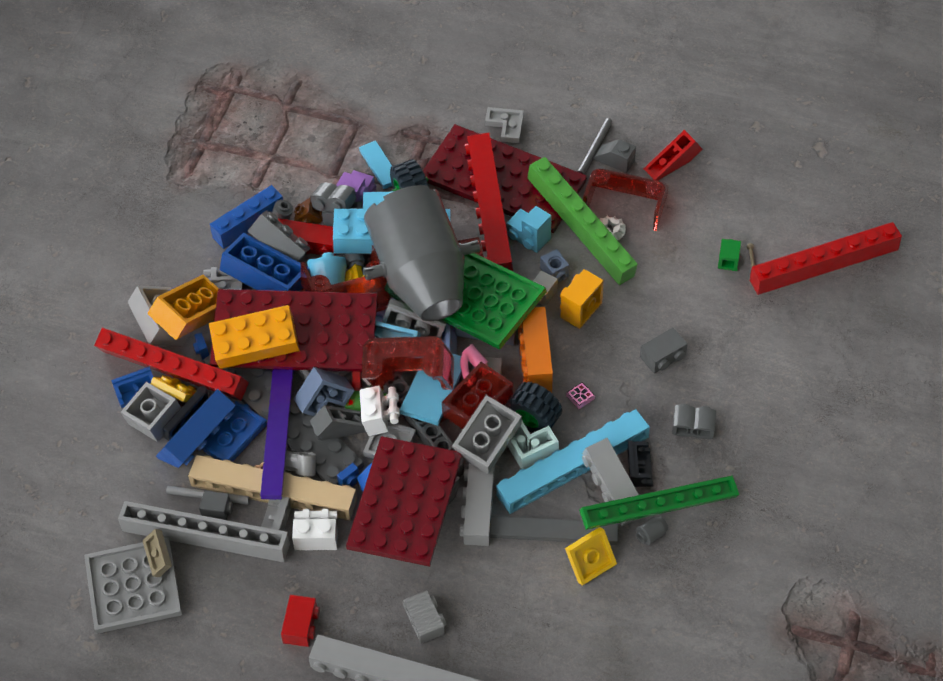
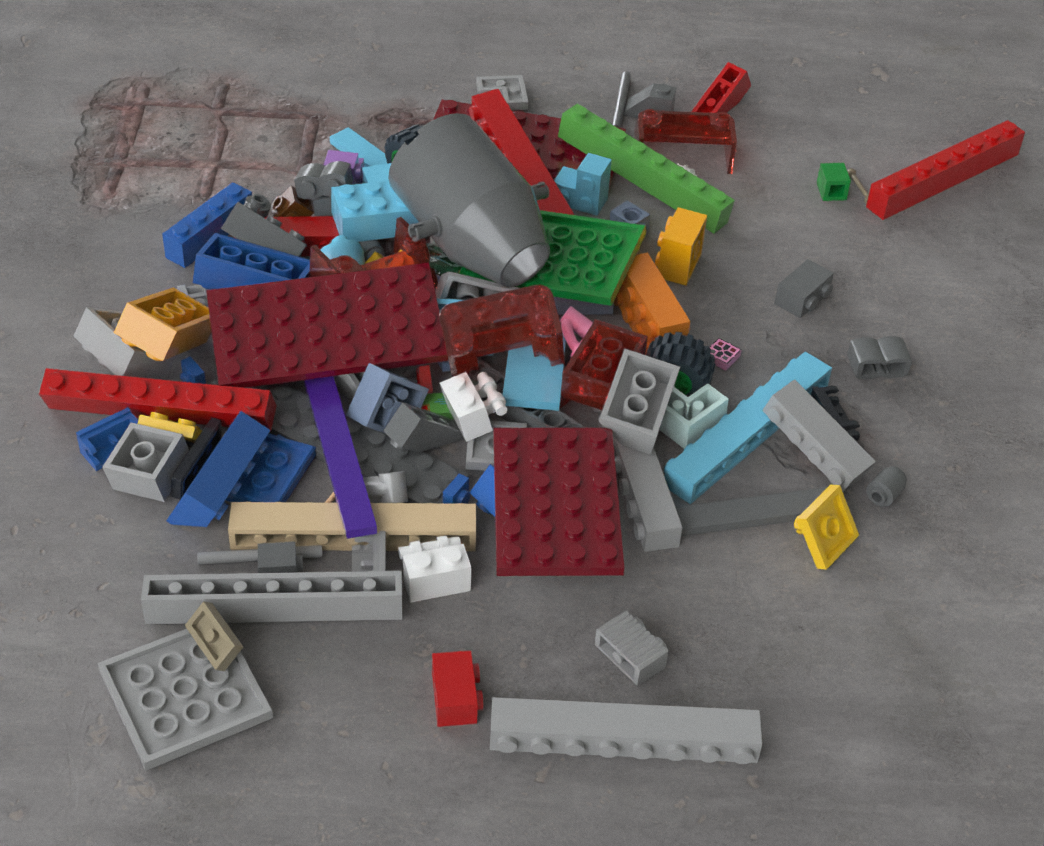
camera: 20 degrees left, 10 degrees down
(254, 337) = (277, 334): light orange brick -> none
(658, 502) = (885, 447): green plate -> none

